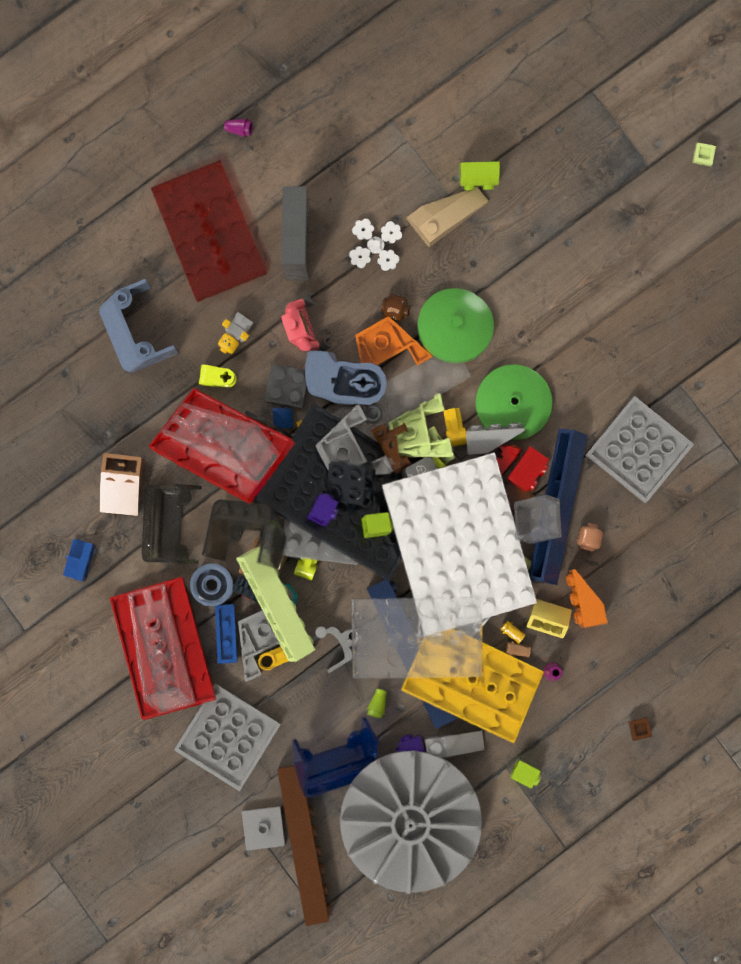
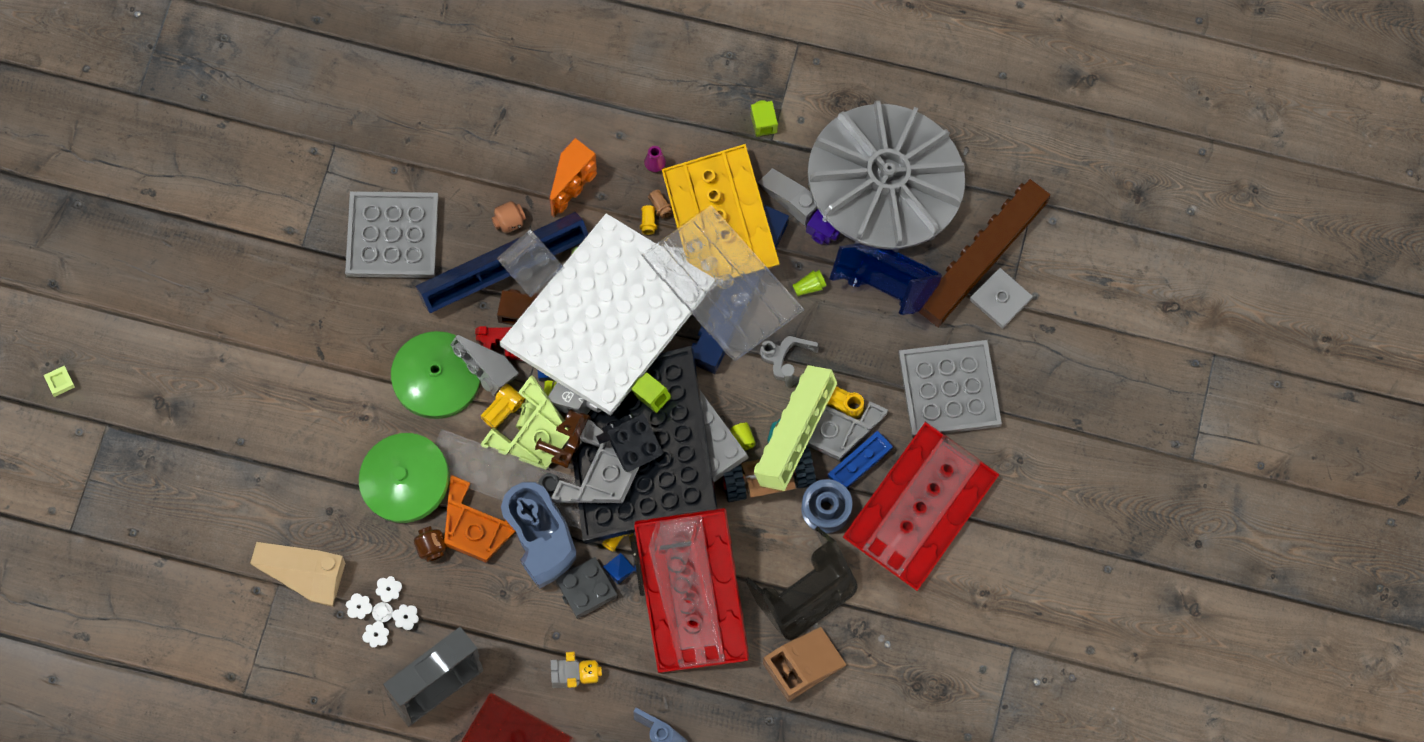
camera: 135 degrees left, 15 degrees down
(79, 560) = (906, 647): blue panel -> none
(214, 376) = (632, 660): neon yellow piece -> none
(227, 526) = (757, 534): clear smoke windscreen -> none
(299, 326) = (519, 616): coral torso -> none
(323, 509) = (676, 445): dark purple brick -> none
(479, 174) = (236, 567): lime brick -> none
(528, 469) = (490, 307): red brick -> none
(549, 618) = (610, 196): light yellow brick -> none
(640, 729) = (644, 55): reddish brown plate -> none

